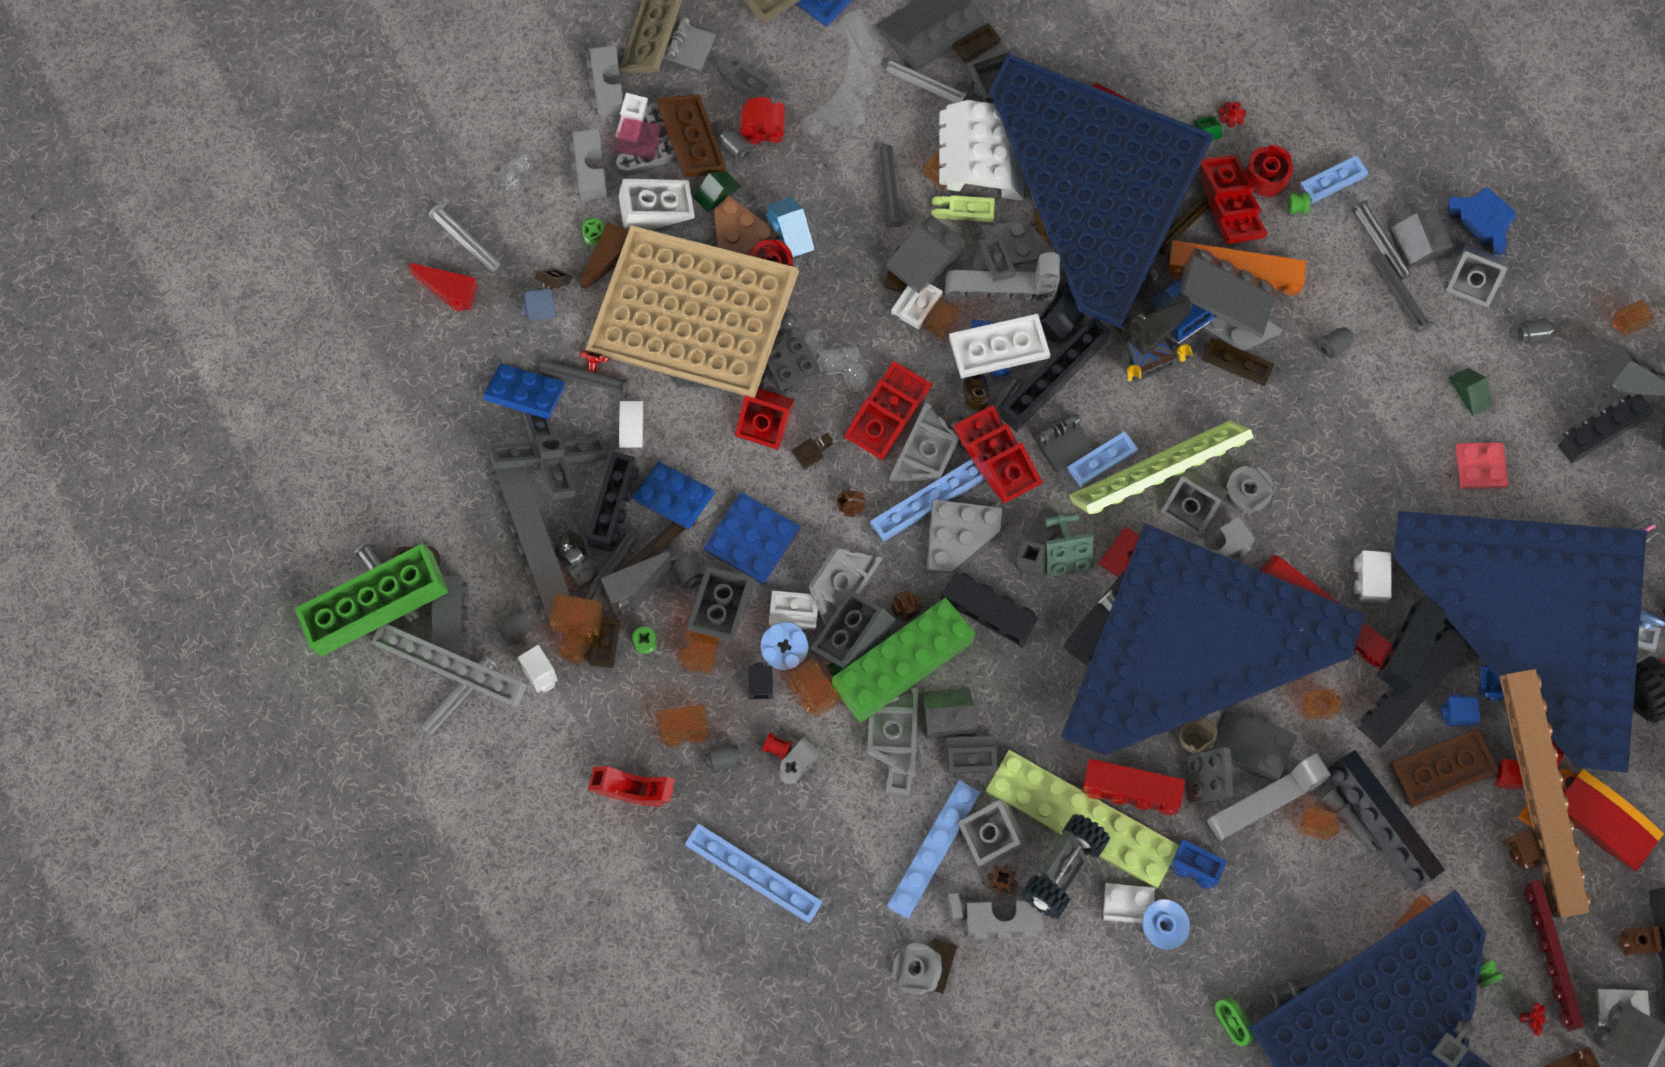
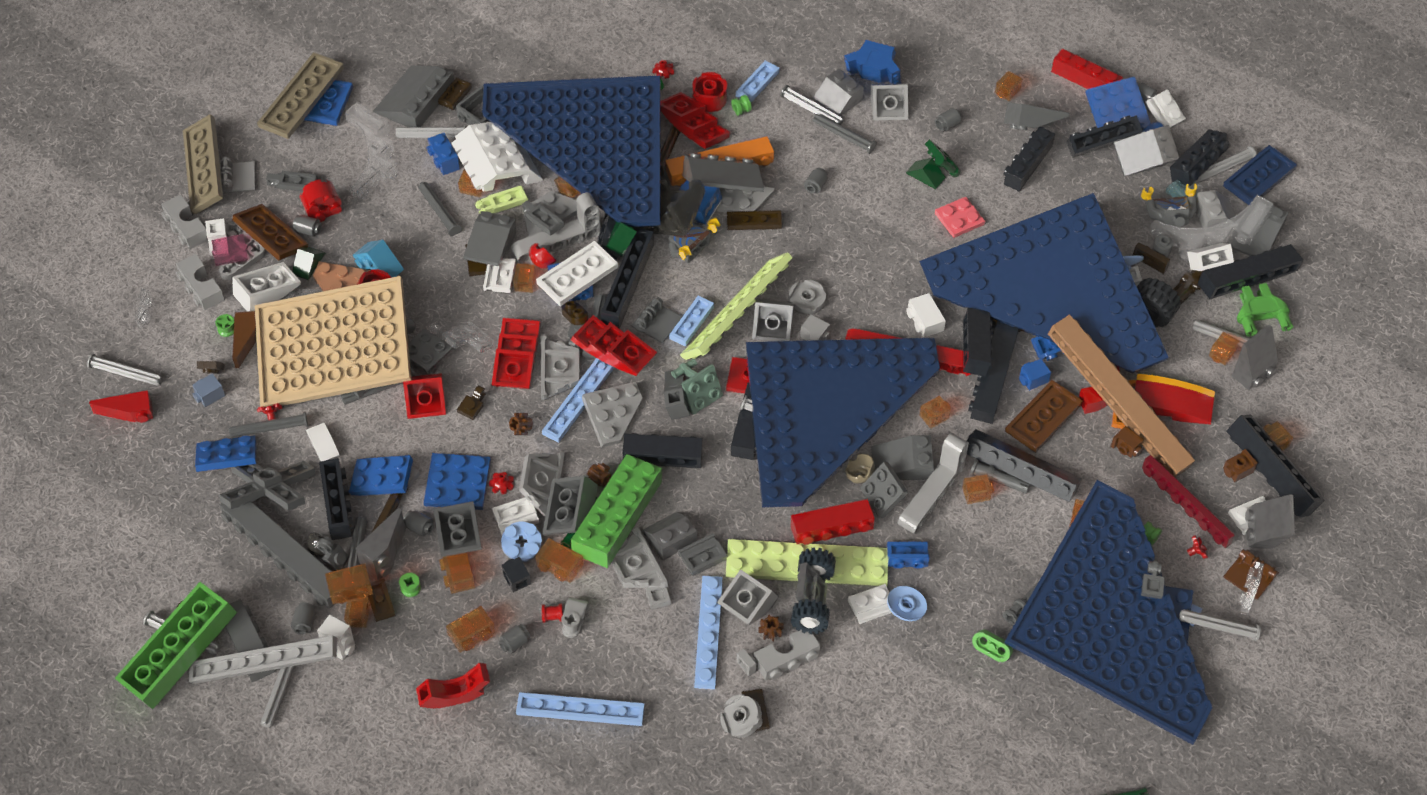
camera: 25 degrees left, 15 degrees down
(798, 562) = (501, 482): none -> red plant
(926, 118) = (443, 154): none -> blue brick
(969, 305) = (540, 257): none -> red hair
(1070, 322) = (621, 238): none -> dark green slope
(1500, 382) = (942, 158): none -> dark green plate

